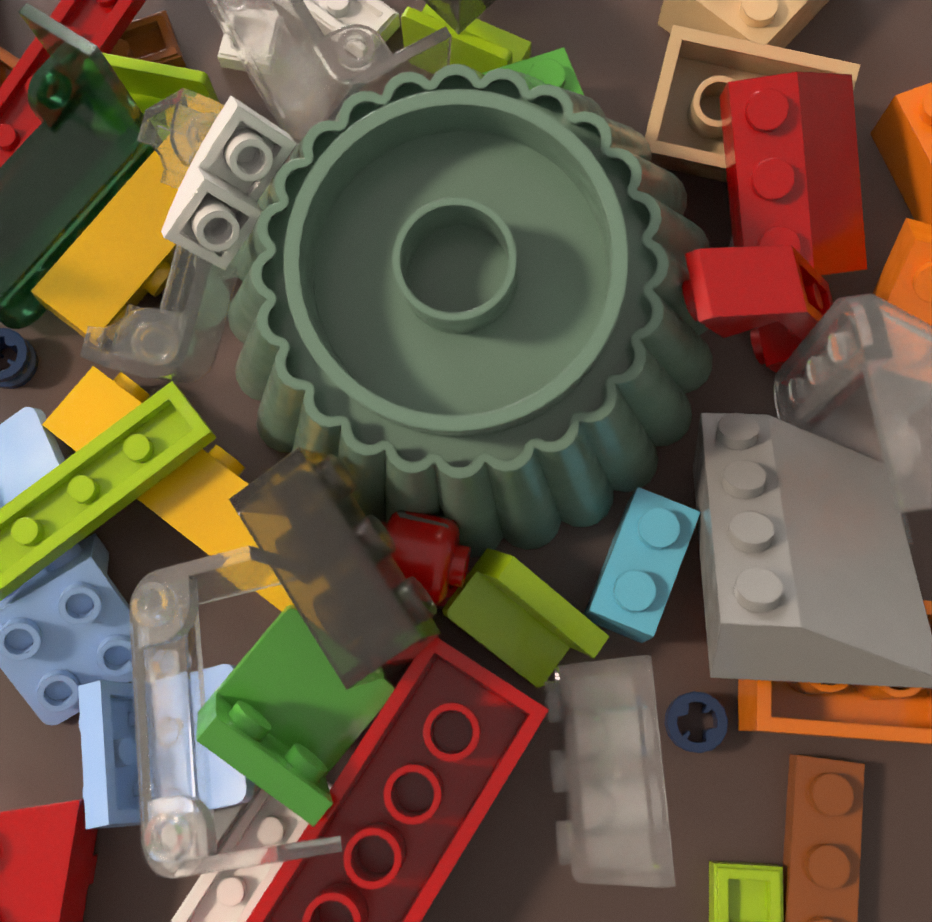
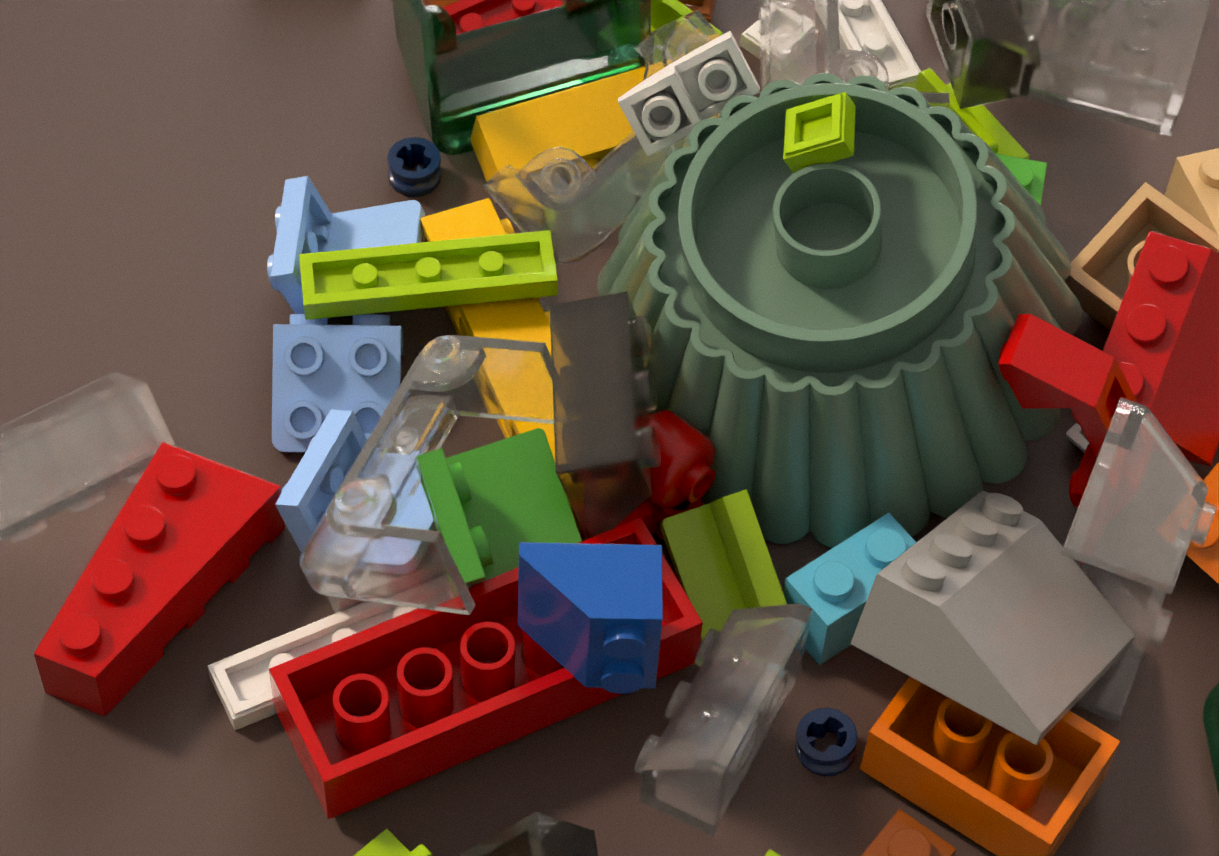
camera: 25 degrees right, 20 degrees down
(397, 173) = (819, 132): none -> lime tile
(473, 806) = (595, 610): none -> blue slope

